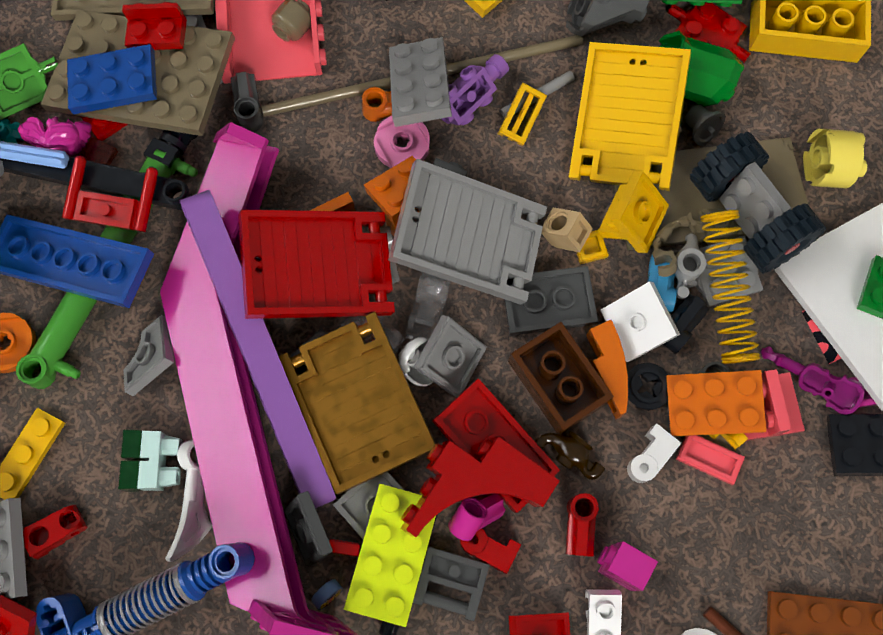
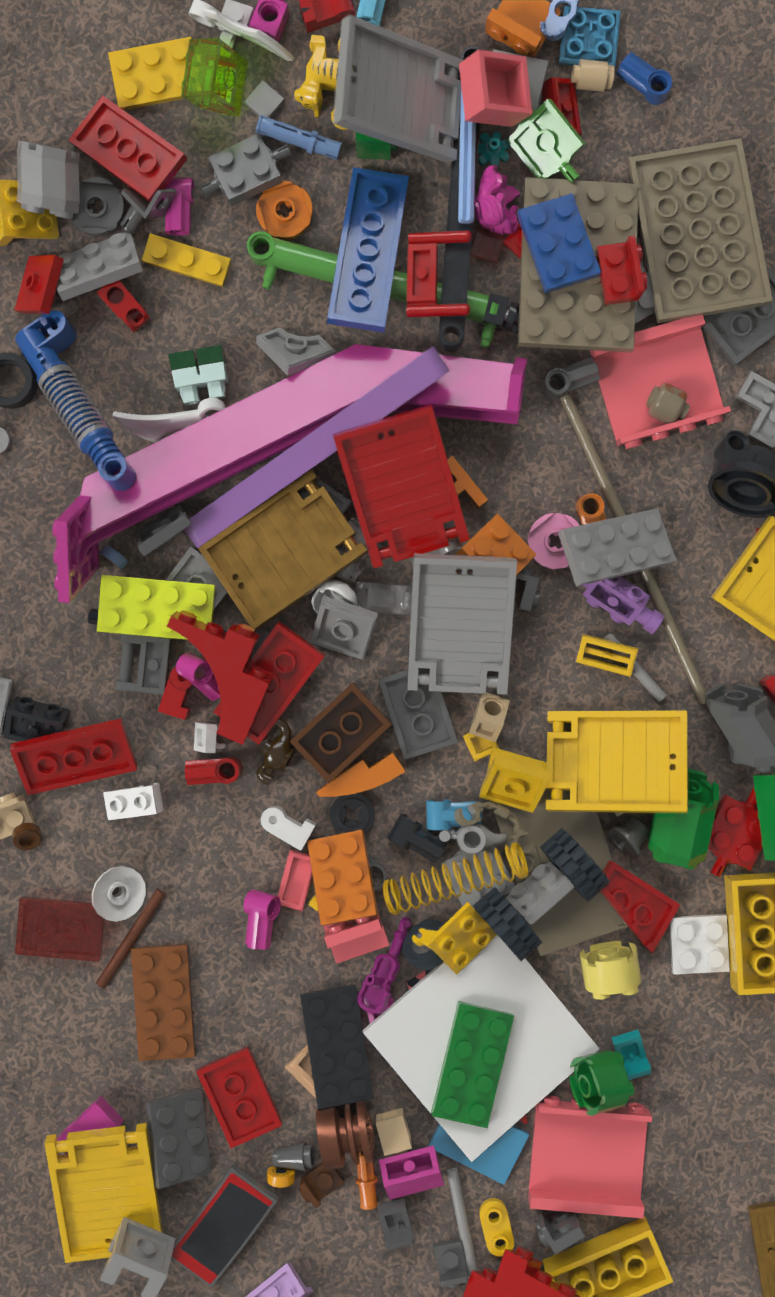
camera: 80 degrees right, 15 degrees up
(345, 547) = (155, 565): red tile -> none
(544, 526) = (205, 738): none -> white tile
(626, 566) = (181, 814): dark pink brick -> none
(641, 321) = (409, 799): white plate -> none
(742, 499) = (261, 911): none -> dark pink piece
(777, 122) = (639, 905): none -> red wing
(795, 325) = (449, 943): none -> yellow plate
(813, 82) = (699, 944): none -> white plate

